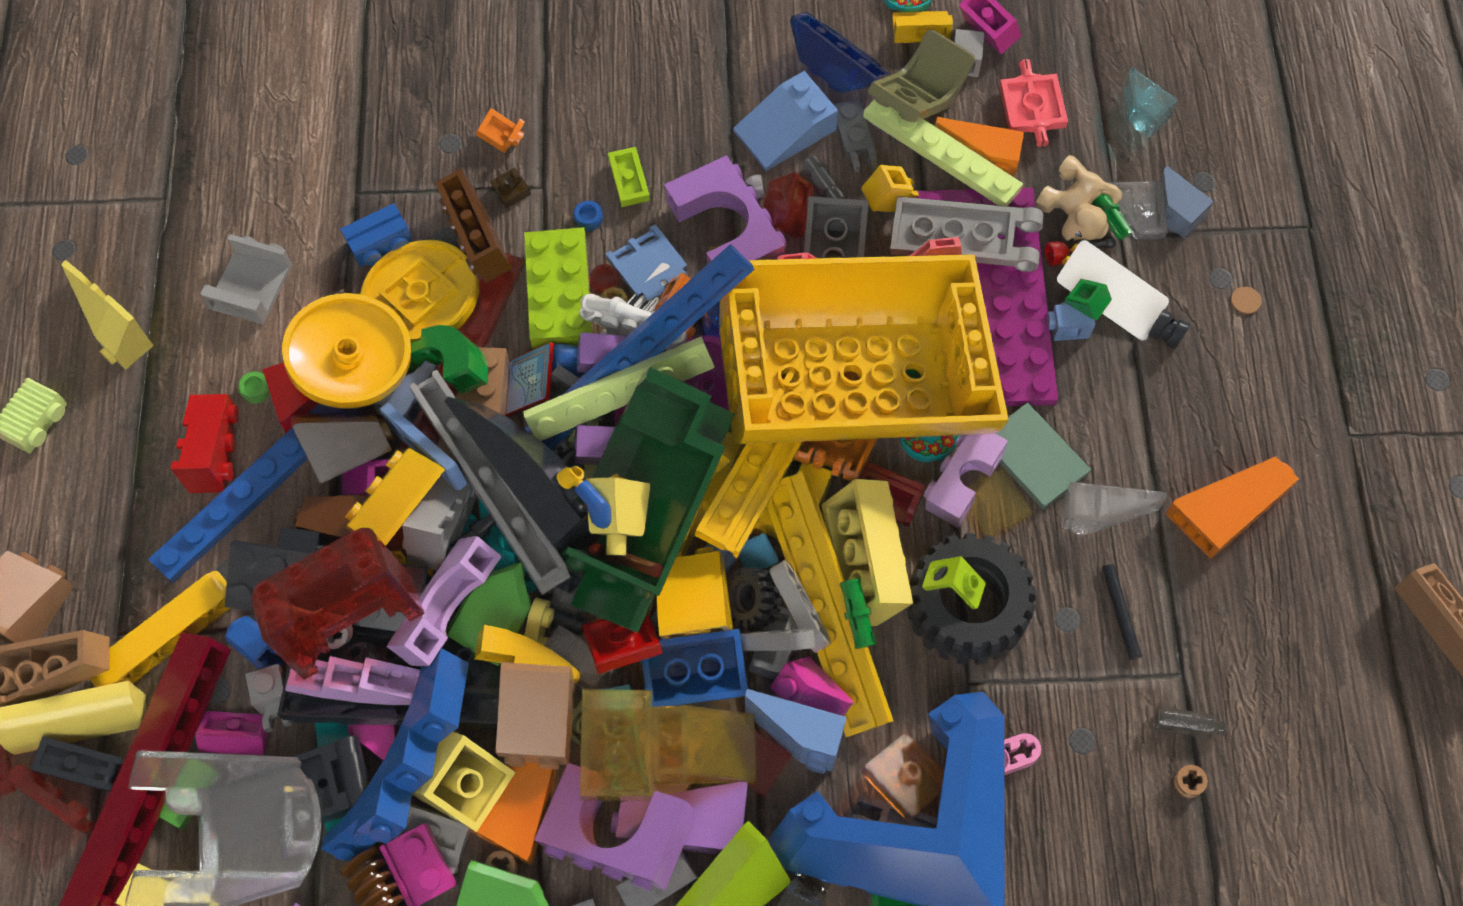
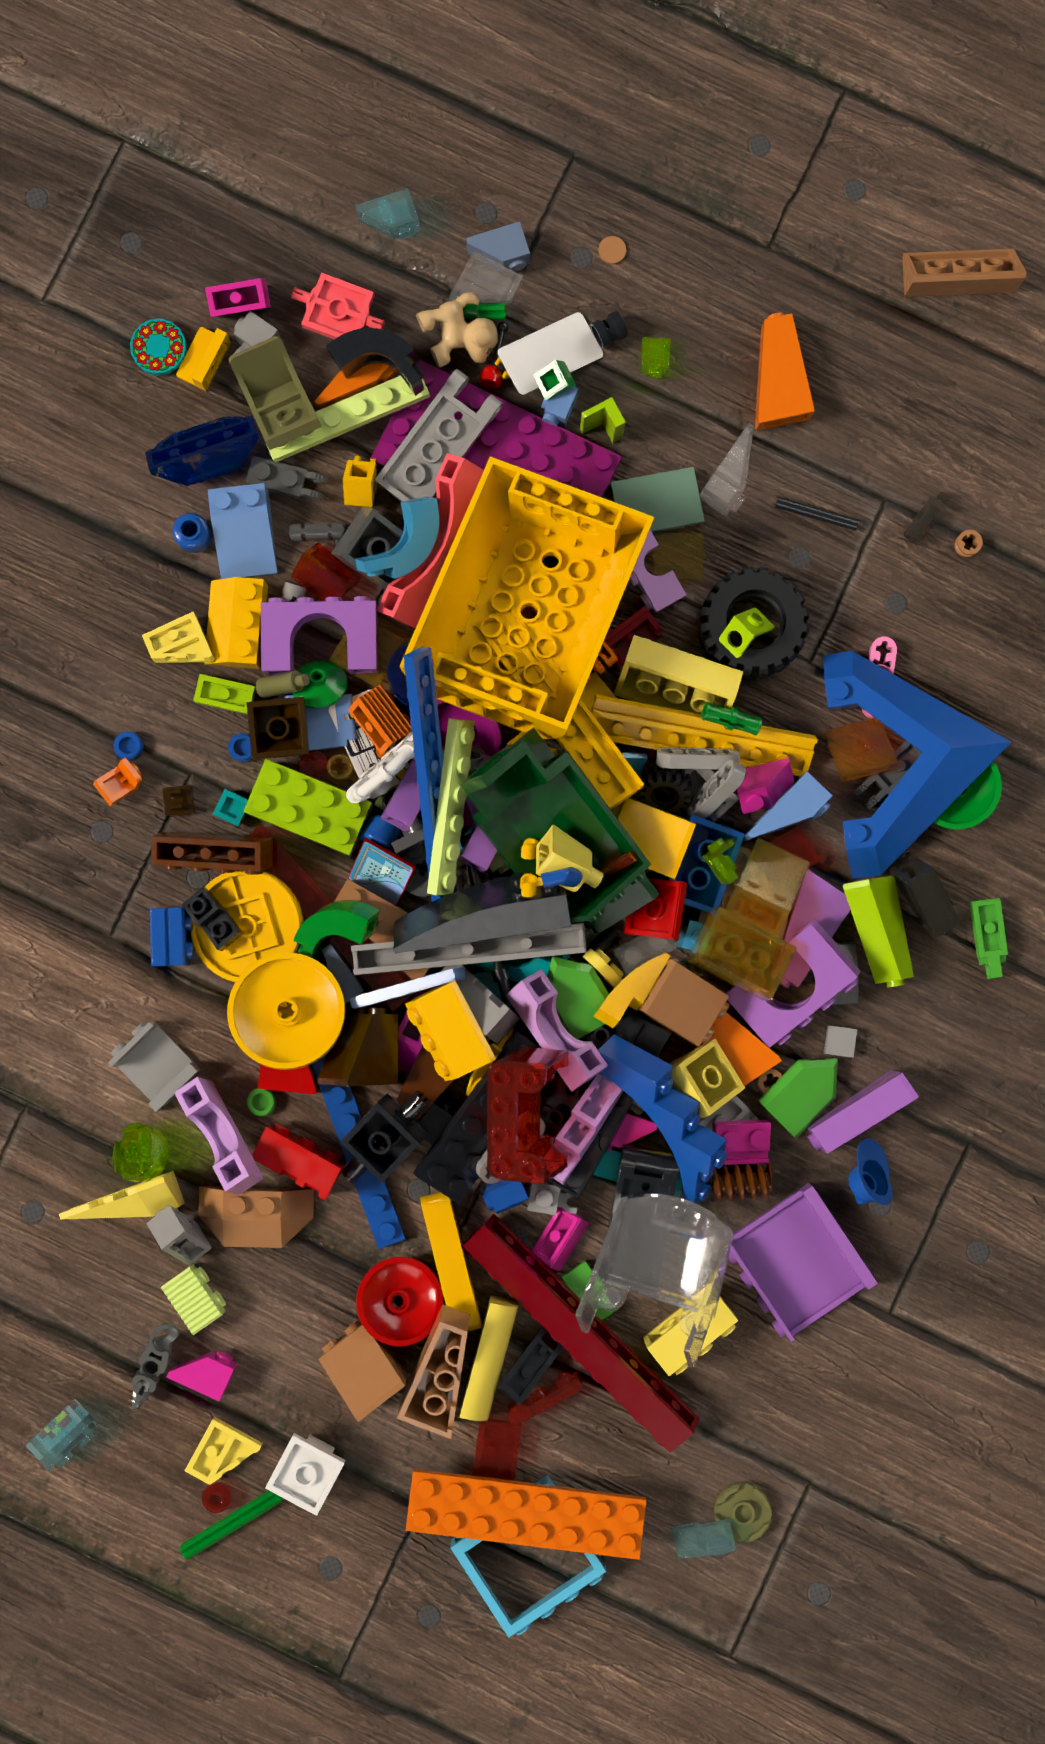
camera: 65 degrees left, 20 degrees up
(84, 367) = (178, 1235): none -> light grey brick
(95, 577) = (420, 1301): none -> red dish
(137, 433) = (257, 1216): none -> medium nougat wedge
(155, 304) = (140, 1153): none -> clear neon green cylinder
(223, 335) = (232, 1158): none -> lavender arch
(261, 498) = (398, 1127): none -> black brick
(413, 254) = (212, 918): none -> black slope
(522, 224) = (231, 808): none -> teal plate
(539, 126) = (128, 745): none -> blue tile
(618, 223) = (278, 728): none -> dark brown slope
(656, 118) = (179, 642): none -> light yellow wing
(662, 212) = (281, 684): none -> olive cylinder
(681, 246) = (326, 690): none -> green dish
(700, 149) = (236, 622): none -> yellow slope
(700, 682) = (721, 865): none -> clear neon green bracket
(758, 80) = (187, 525): none -> blue head
(885, 243) = (415, 545): none -> dark azure arch
(1015, 132) = (373, 346): none -> black arch
(1082, 355) = (607, 415): none -> lime panel
(1172, 384) = (655, 357): none -> clear neon green bracket

